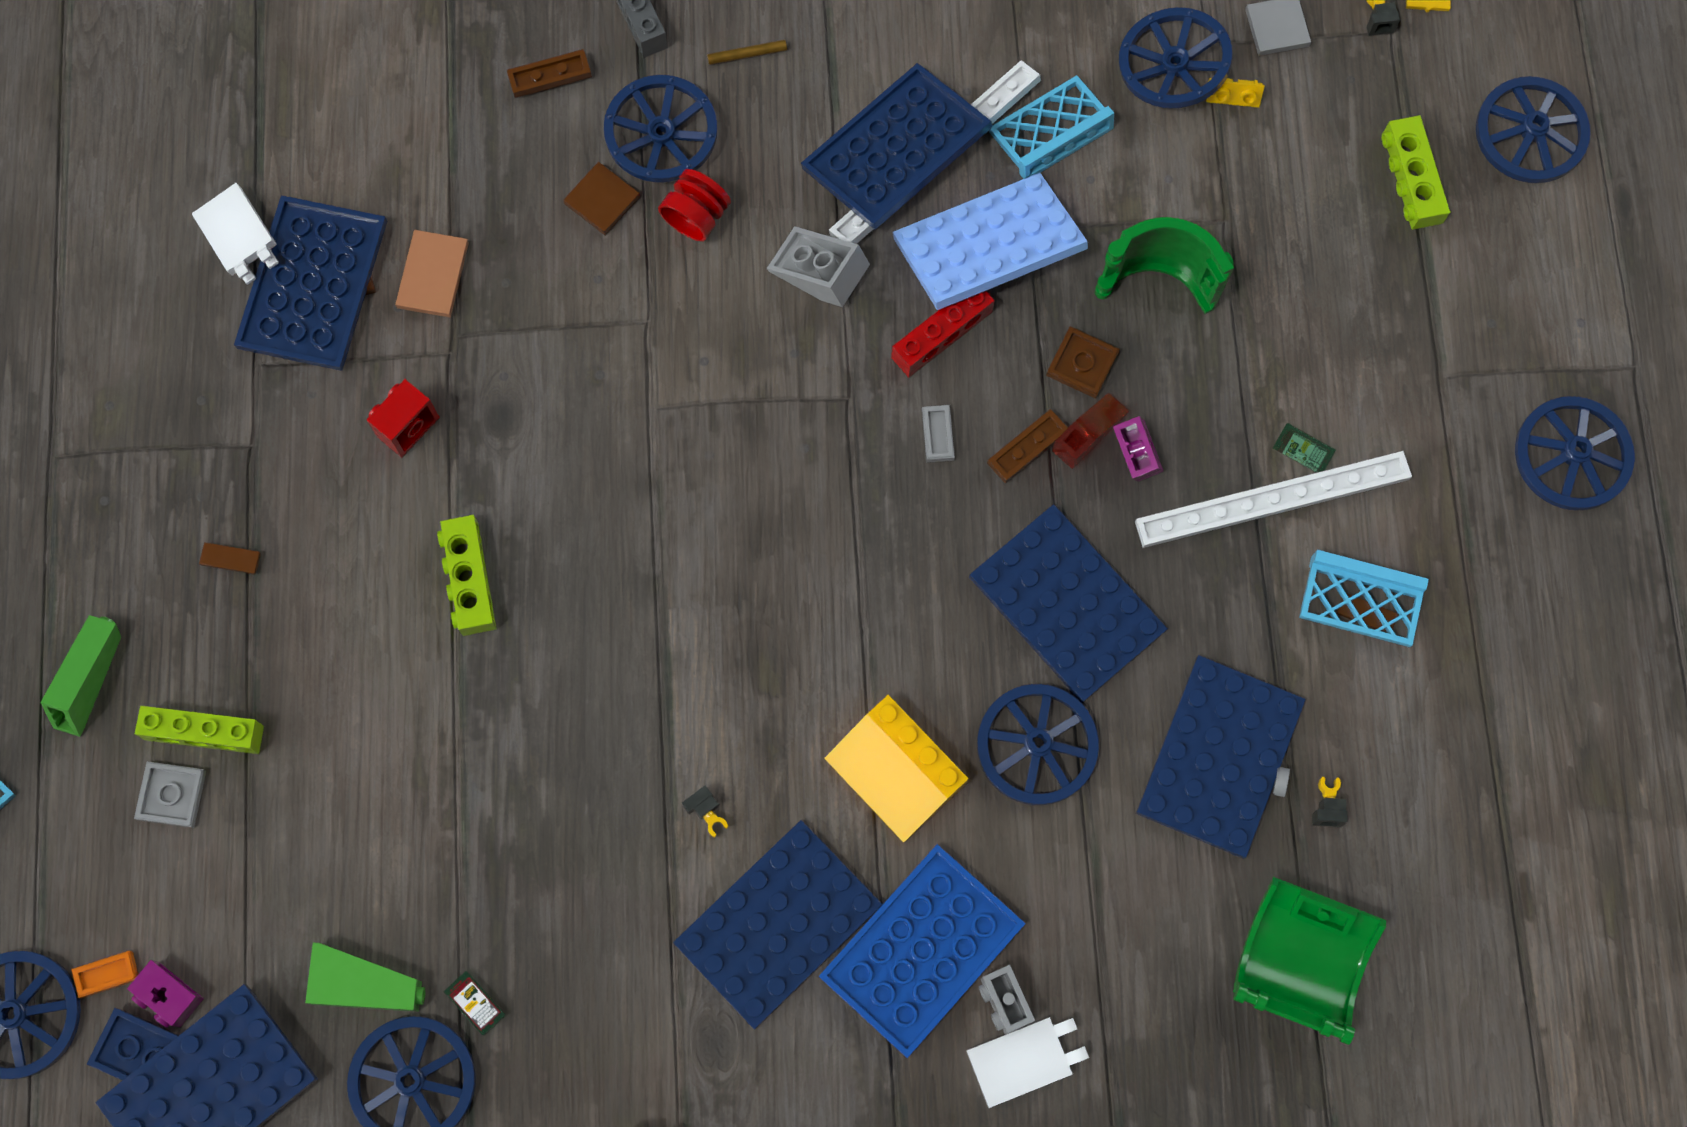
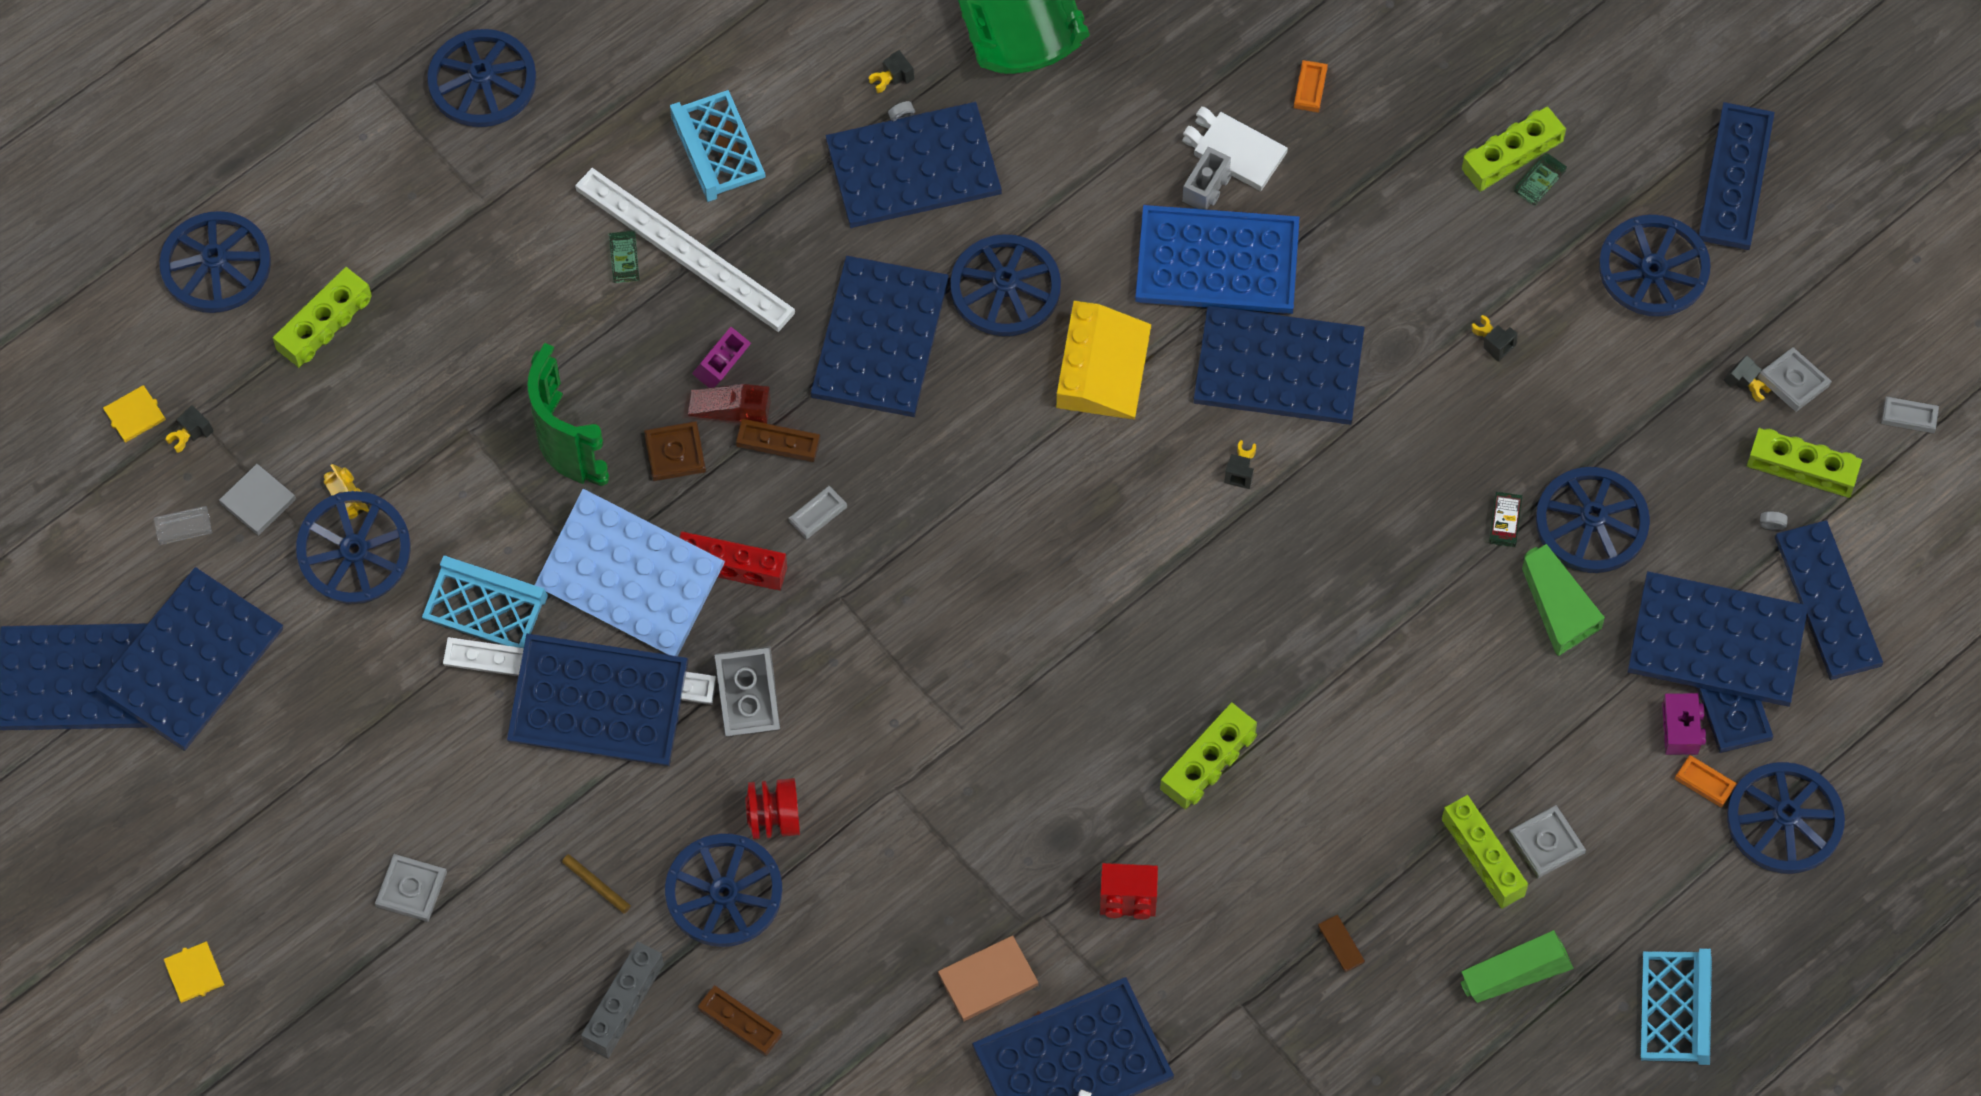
camera: 125 degrees left, 10 degrees down
(601, 198) = (818, 898): reddish brown tile -> none

